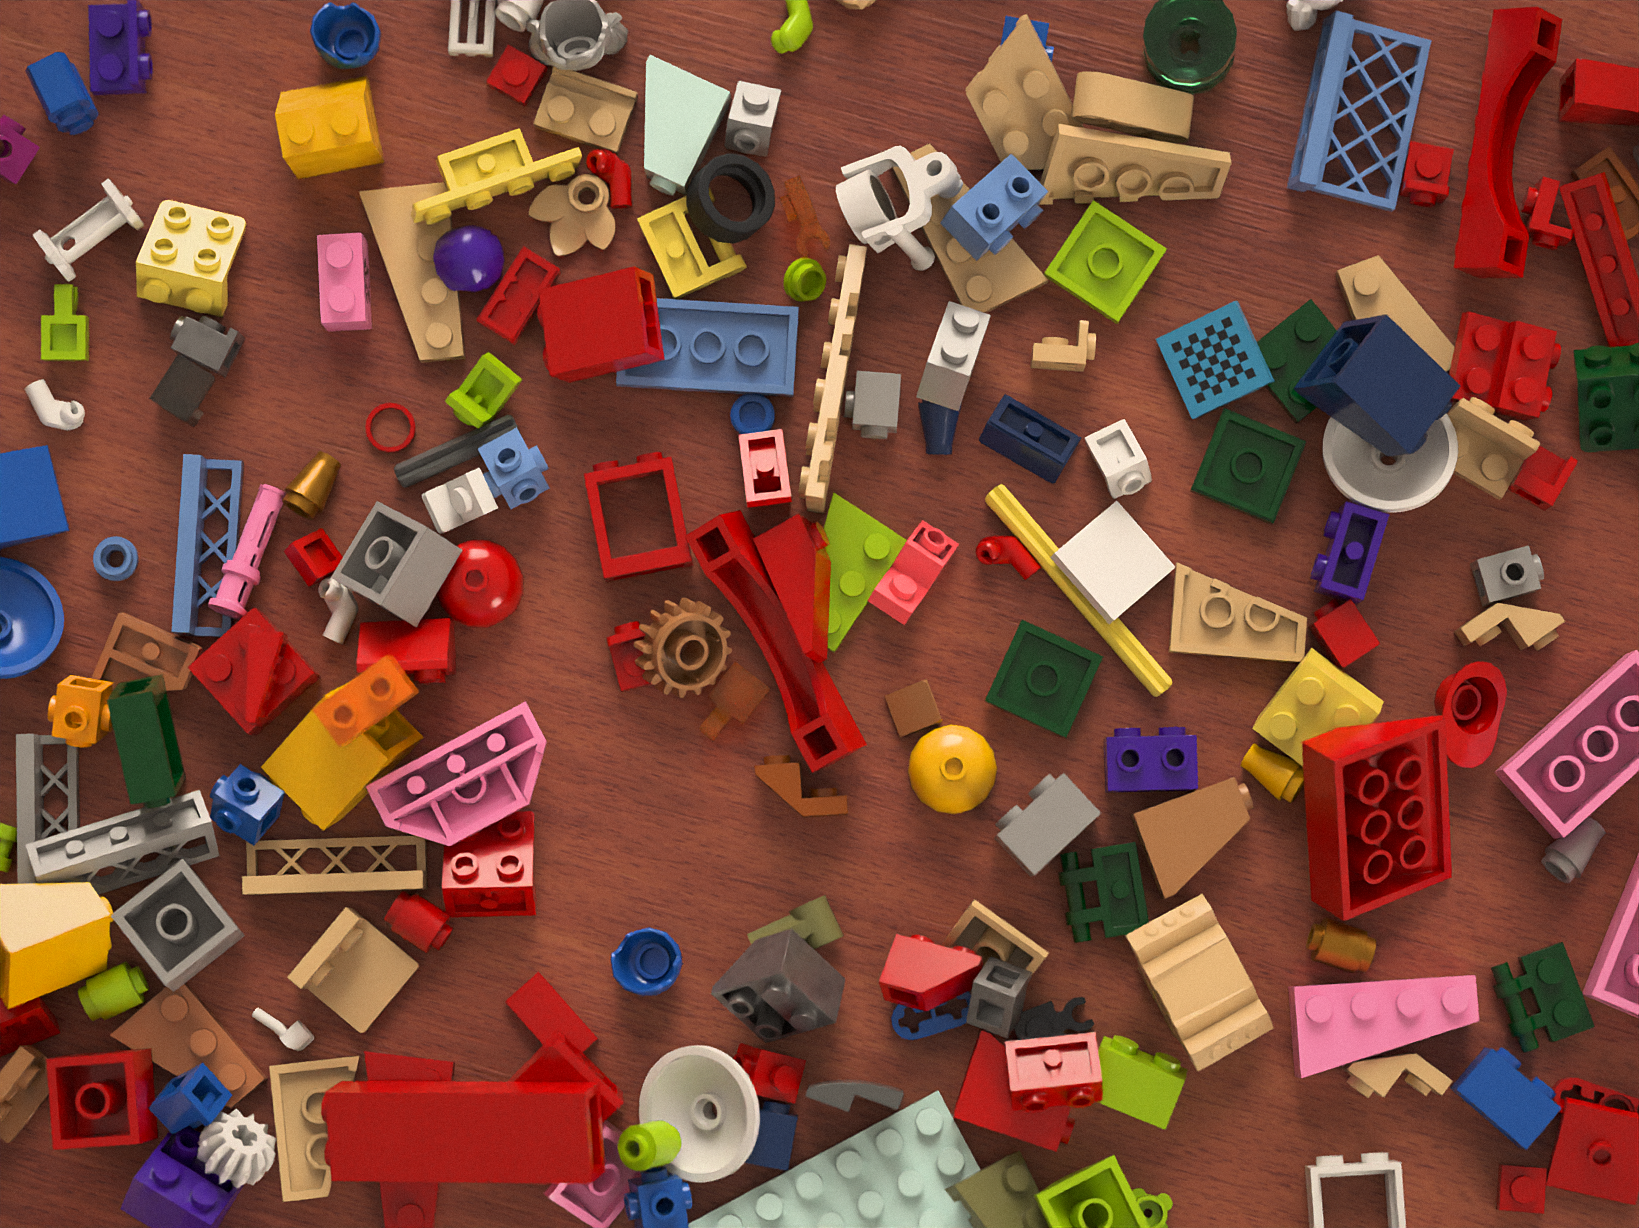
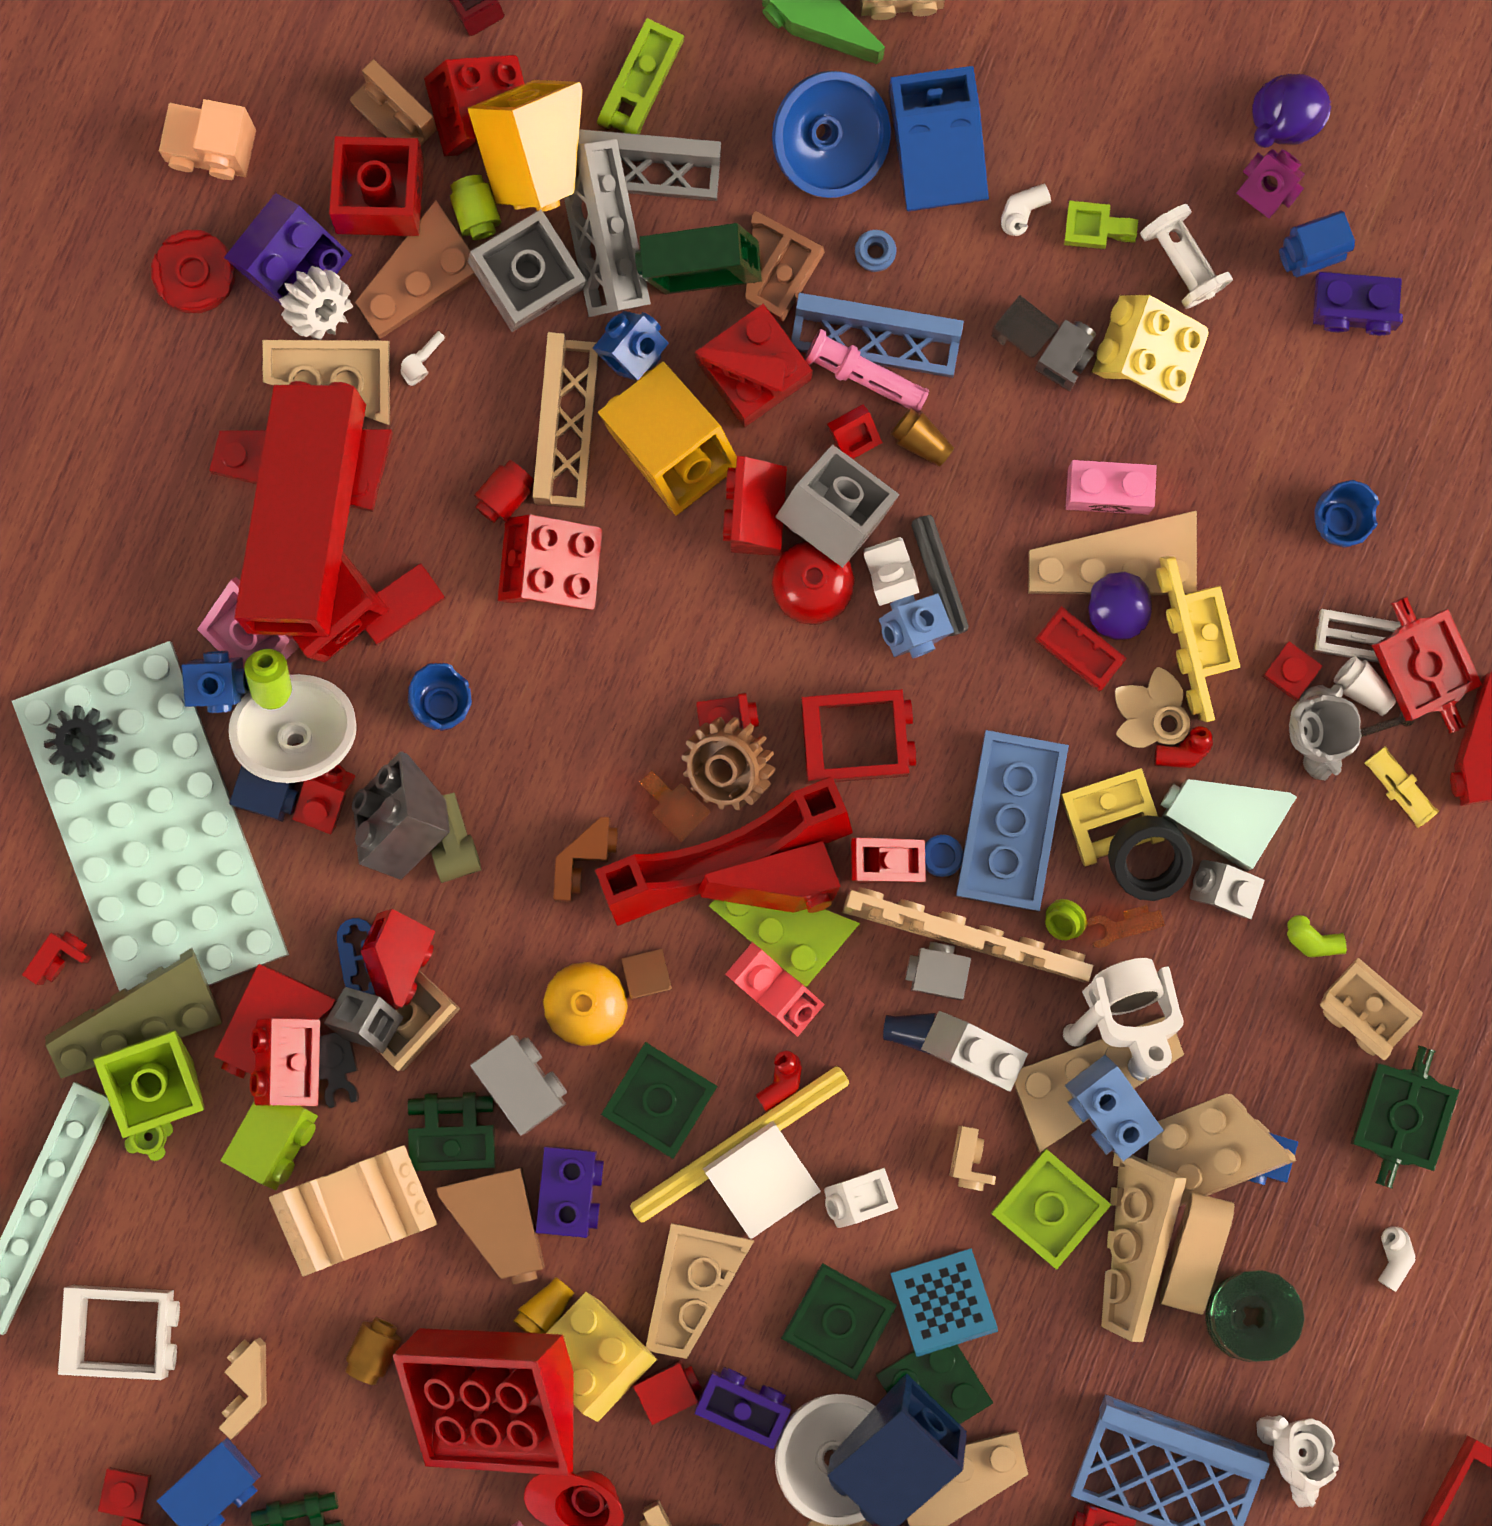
camera: 90 degrees right, 0 degrees up
(81, 710) = (738, 201): light orange brick -> none
(190, 1099) = (365, 266): blue brick -> none
(328, 128) = (1260, 487): yellow slope -> none
(342, 607) = (802, 454): white arm -> none
(354, 969) = (467, 428): tan bracket -> none
(365, 700) = (707, 459): orange brick -> none
(377, 410) = (975, 497): red piece -> none
(465, 780) = (626, 546): bright pink wedge -> none
(483, 392) = (992, 605): lime bracket -> none
(585, 110) = (1251, 732): tan plate -> none
(600, 324) = (1042, 721): red brick -> none
(841, 1093) = (296, 860): dark grey slope -> none
(1029, 439) = (890, 1115): dark blue slope -> none
(1366, 1018) = (301, 1370): bright pink wedge -> none

